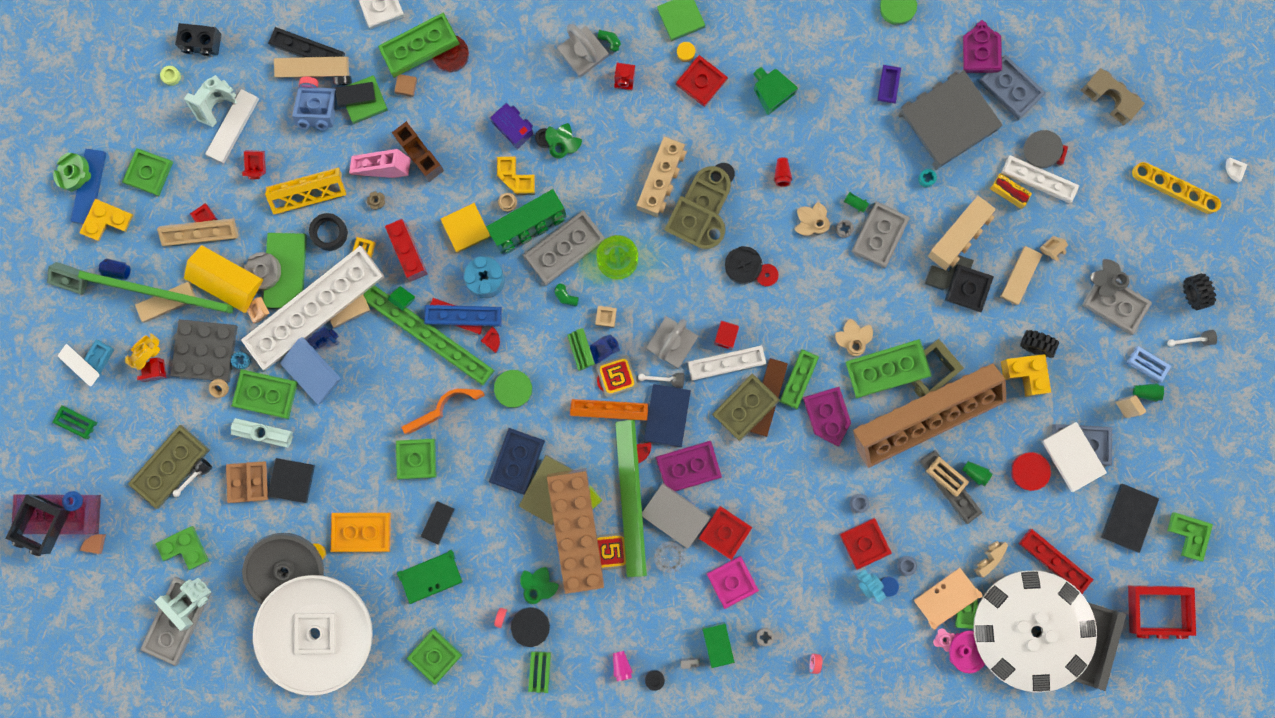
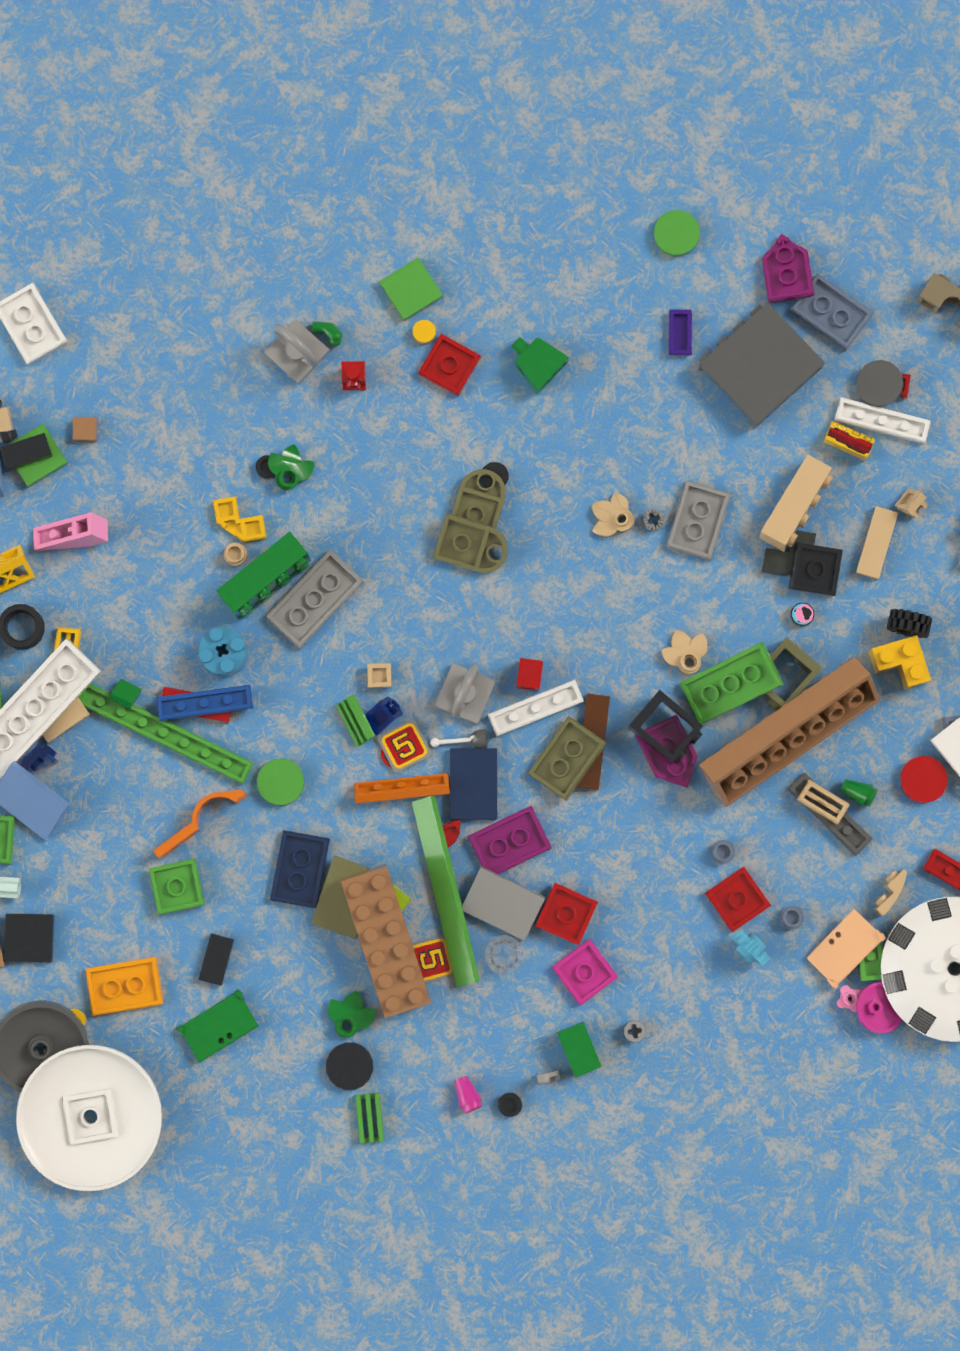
camera: 10 degrees left, 0 degrees up
(376, 205) = (73, 584): dark tan plate -> none
(406, 250) = (121, 634): red brick -> none
(417, 151) = (115, 510): reddish brown arch -> none
(418, 45) = (92, 376): bright green tile -> none
(434, 656) = (239, 1120): bright green tile -> none
(454, 58) = (133, 380): clear red tile -> none
(465, 227) = (189, 594): yellow tile -> none
(492, 340) = (244, 726): red tile -> none
(500, 618) = (312, 1058): coral tile -> none
(512, 125) = (225, 459): dark purple brick -> none
(563, 297) = (323, 659): green arm -> none
(631, 255) = (363, 605): clear neon green wheel -> none
(660, 177) = (418, 493): tan brick -> none
(743, 265) = (537, 585): black tile -> none
(773, 275) = (571, 585): red wheel -> none
(782, 173) = (566, 464): red cone -> none
(799, 379) = (626, 711): bright green tile -> none
(815, 663) = (699, 1052): coral tile -> none
(850, 407) = (680, 752): none -> black window
(856, 202) = (662, 485): green pin -> none
(890, 586) = (774, 945): blue tile -> none
(927, 184) = (749, 447): teal bush -> none
(952, 323) = (802, 614): none -> tile

